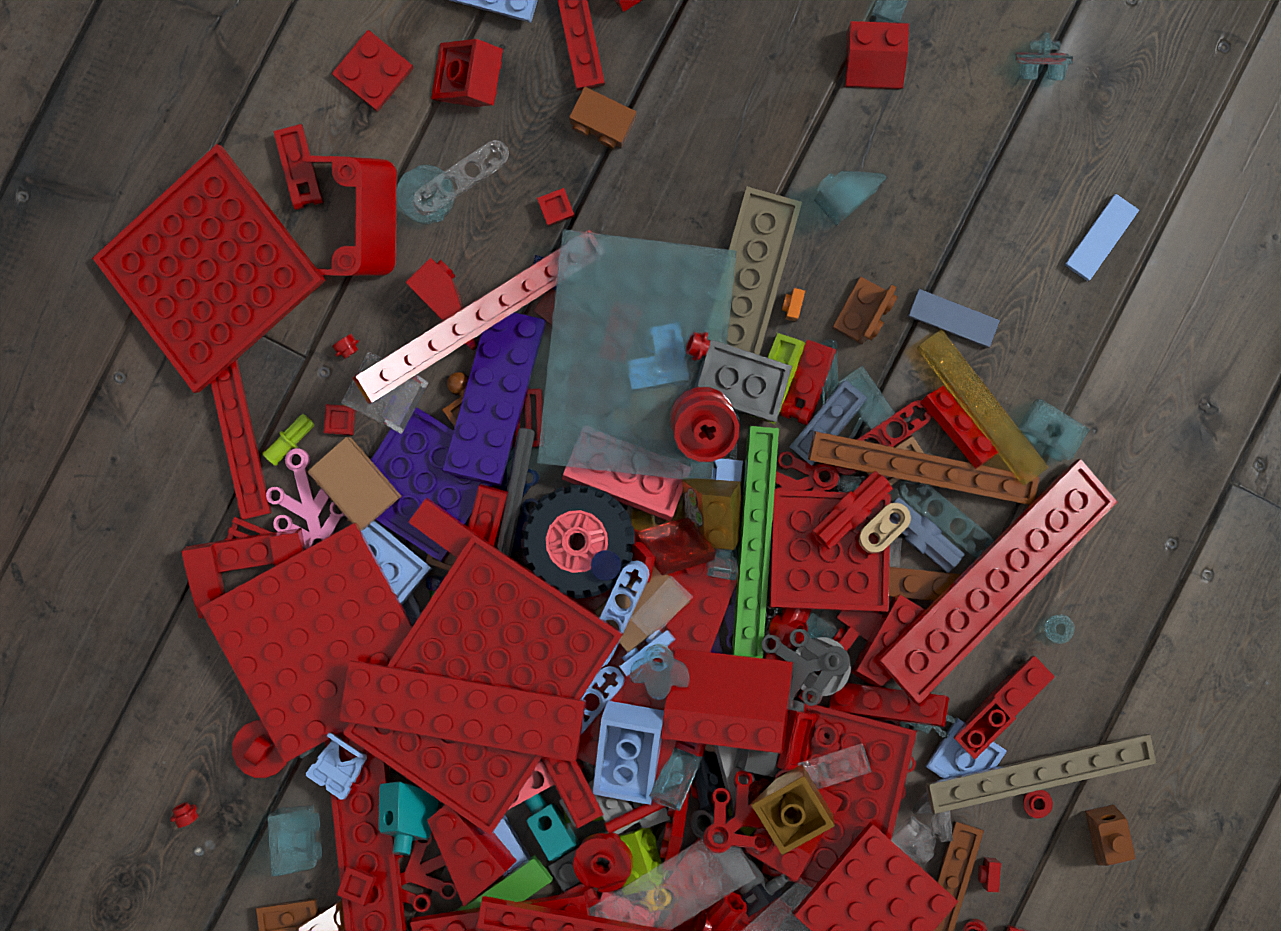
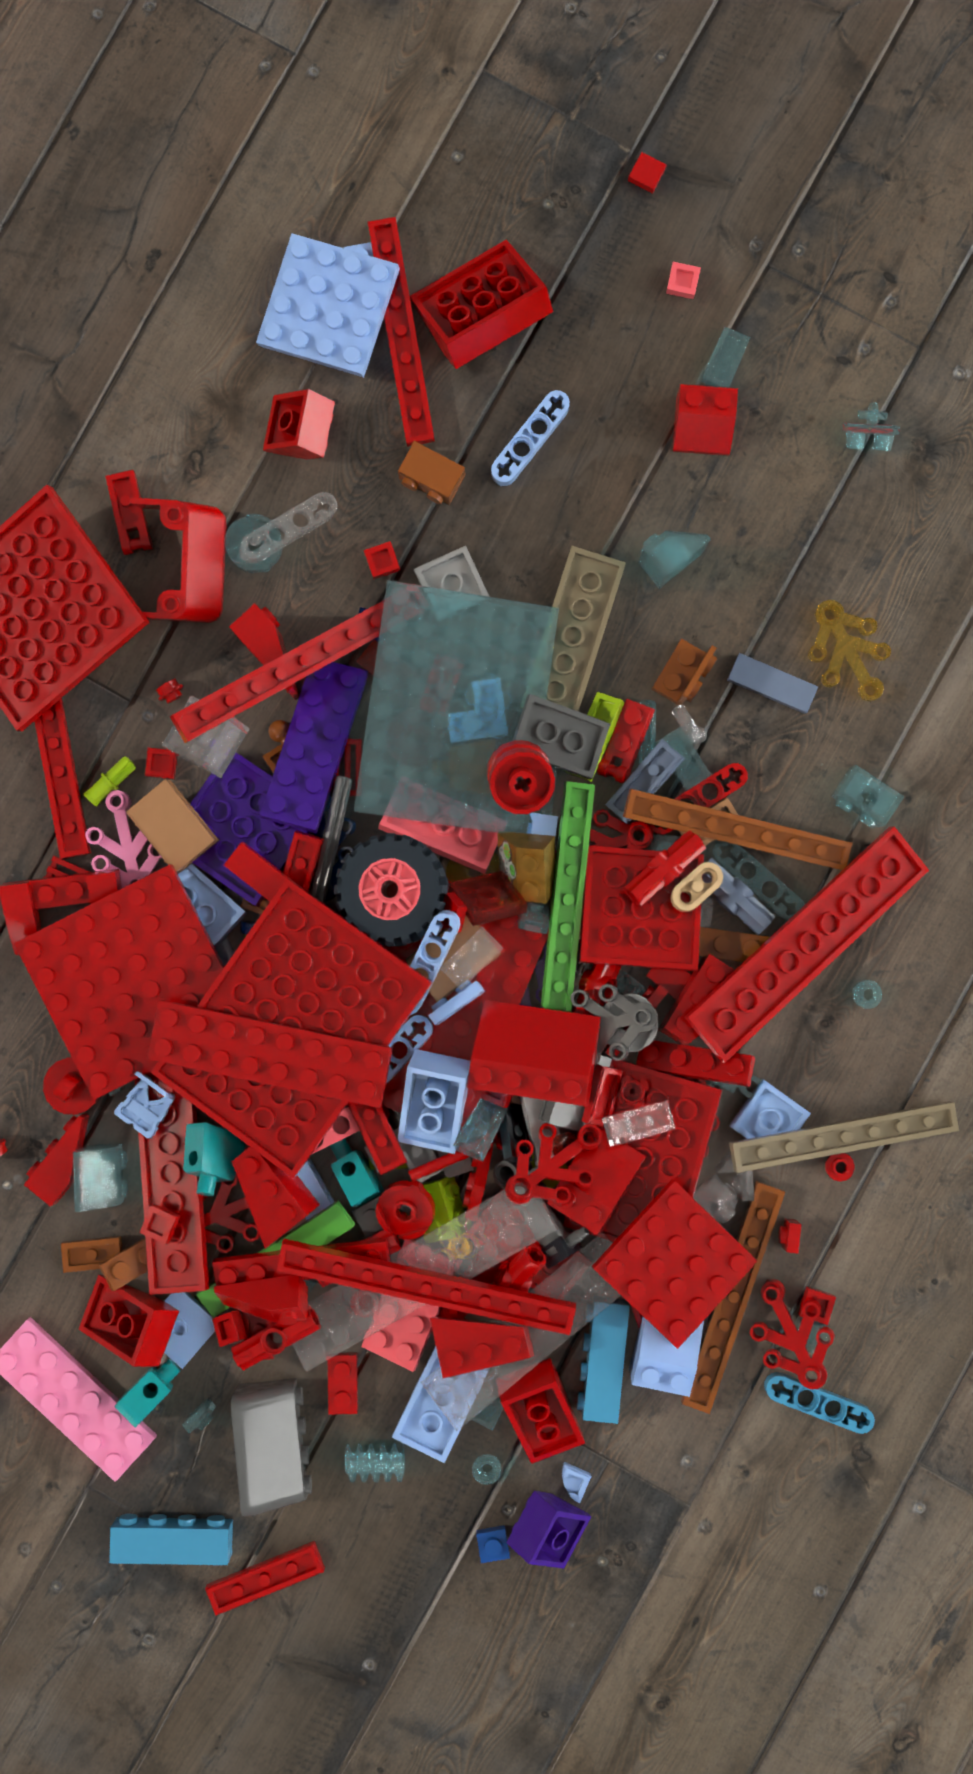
camera: 10 degrees right, 0 degrees up
(251, 834) = (56, 1172): none -> red slope
(372, 70) = (206, 420): red plate -> none
(606, 565) = (417, 913): clear blue tile -> none
(627, 218) = (452, 572): none -> light grey plate
(659, 676) = (467, 1026): clear light blue plate -> none
(697, 345) = (517, 699): red plate -> none
(704, 80) = (532, 439): none -> light blue beam
(792, 304) = (613, 663): orange plate -> none
(793, 810) = (595, 1164): pearl gold slope -> none
(867, 360) = (695, 734): none -> clear arm
(959, 427) = (774, 790): red plate -> none
(982, 407) = (798, 772): clear yellow plate -> none
(1002, 706) = (808, 1068): red slope -> none
(1028, 278) = (846, 646): none -> clear yellow plant
(1101, 237) = (922, 608): light blue tile -> none
(1110, 837) = (912, 1202): dark orange torso -> none

